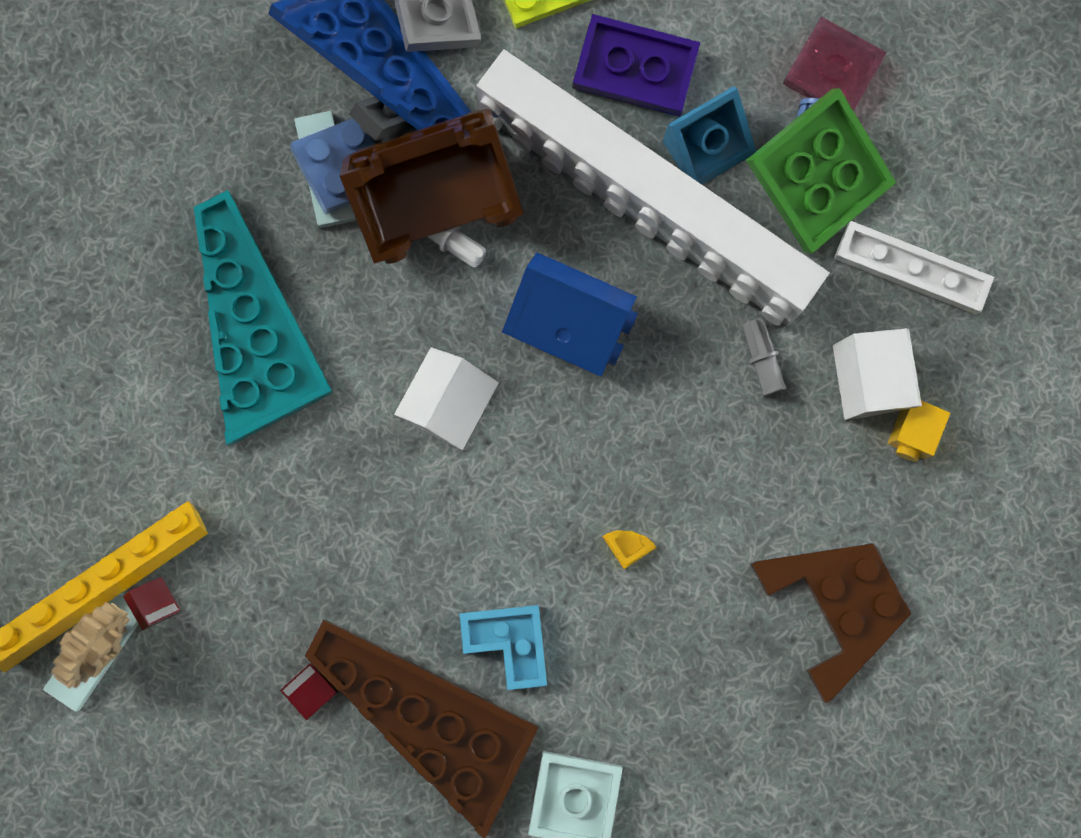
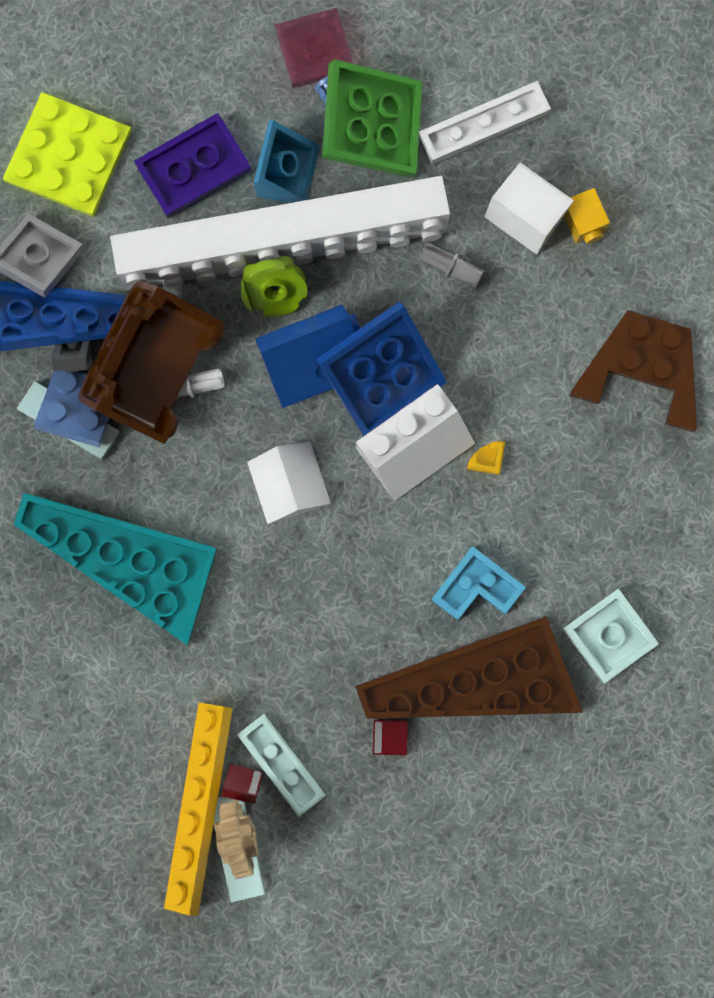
camera: 40 degrees left, 0 degrees up
(200, 621) = (281, 765): none -> light aqua tile
(581, 471) = (415, 442): none -> white slope
(612, 218) = (273, 272): none -> lime plate
(614, 383) = (381, 368): none -> blue plate

